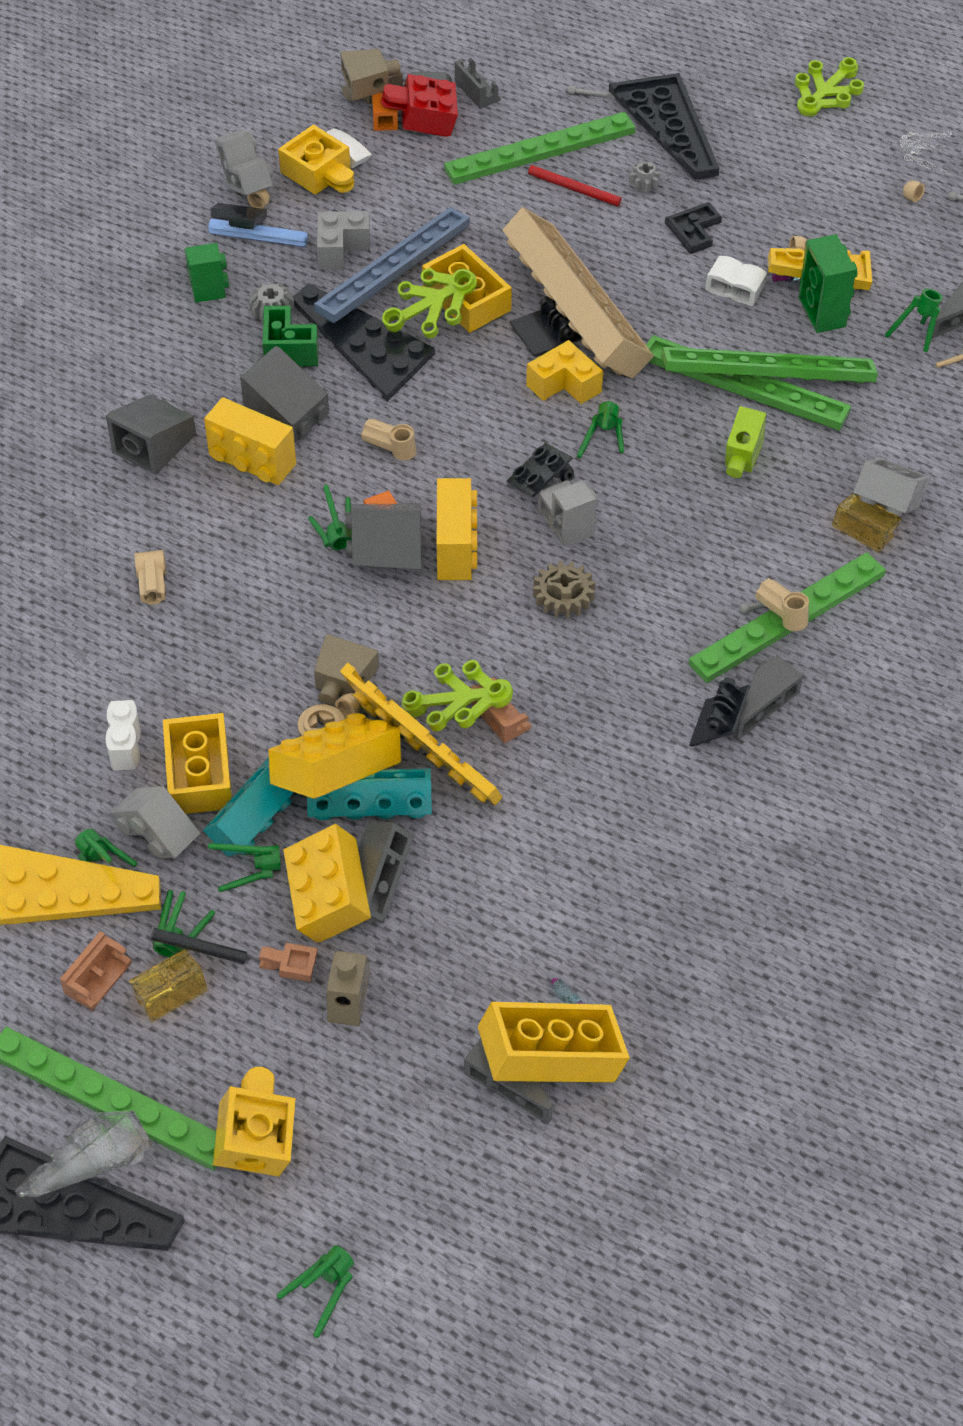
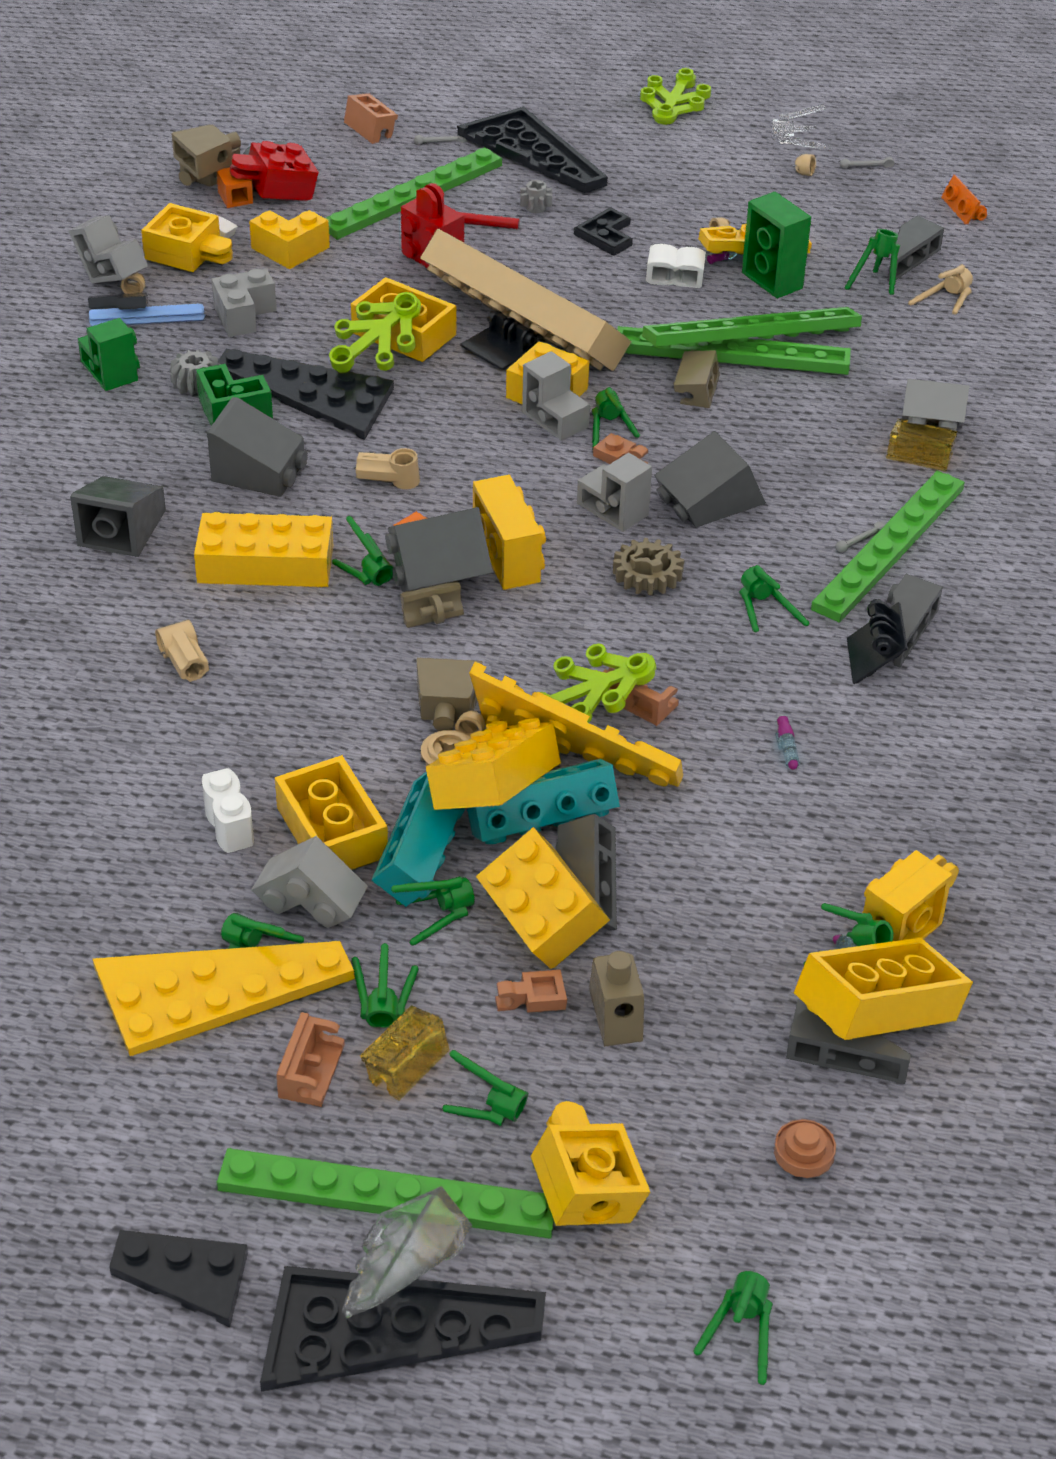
camera: 20 degrees left, 10 degrees down
(198, 945) = (423, 1000): black bar -> none
(227, 1047) = (505, 1099): none -> green plant
(250, 441) = (236, 487): yellow brick -> none
(253, 496) = (264, 549): none -> yellow brick
(367, 582) = (431, 604): none -> dark tan hips
(391, 265) = (311, 315): sand blue plate -> none
(409, 181) = (289, 240): none -> yellow brick
(436, 1157) = (805, 1148): none -> nougat plate
(474, 85) = (319, 152): dark grey hinge -> none
(528, 190) = (423, 217): none -> red brick
(535, 57) = (369, 117): none -> nougat hinge
(541, 469) = (569, 461): black hinge -> none
(557, 400) = (549, 397): none -> light grey brick
(564, 990) = (867, 930): none -> green plant
(596, 464) = (615, 446): none -> nougat plate
(602, 789) = (786, 742): none -> clear light blue piece
(619, 967) = (912, 895): none -> yellow brick
(651, 632) = (761, 586): none -> green plant
(652, 520) = (709, 483): none -> dark grey slope
(699, 405) = (698, 376): none -> dark tan hinge
(744, 449) = (765, 409): lime torso -> none
(790, 606) = (897, 527): tan piece -> none

